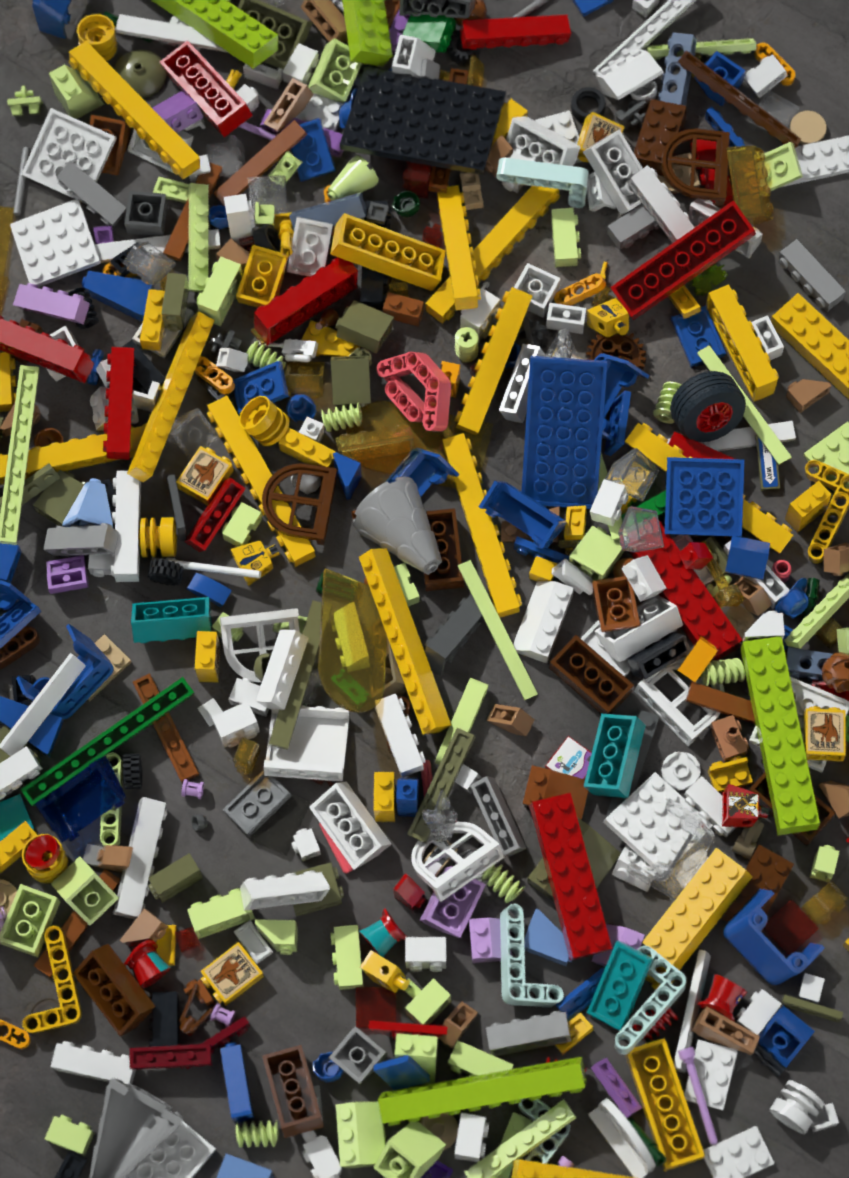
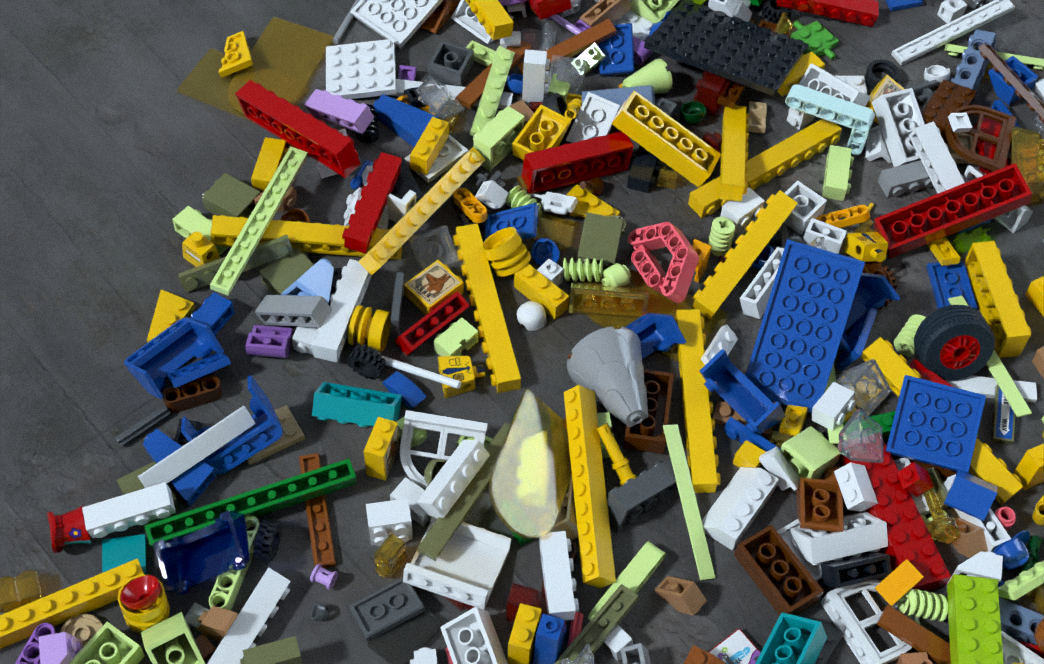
camera: 10 degrees right, 15 degrees down
(92, 193) = (406, 35): light grey brick -> none
(175, 302) = (453, 133): olive brick -> none
(209, 710) = (362, 504): white sticker -> none
(323, 504) = (542, 339): reddish brown window -> none
(348, 473) = (575, 318): blue slope -> none
(364, 326) = (626, 199): olive brick -> none
(374, 763) = (522, 595): none -> clear red brick
(376, 417) = (616, 276): none -> yellowish green head
(404, 309) = (667, 194): dark orange brick -> none
(426, 610) = (620, 463): none -> yellow pin
(491, 466) = (724, 339): none -> white plate
(499, 150) = (781, 94): medium nougat slope -> none
(510, 76) = (817, 37): none -> bright green plate
(628, 74) = (925, 56): white slope -> none
(673, 159) = (960, 122): none -> white plate
(770, 340) = (1026, 299): white brick -> none

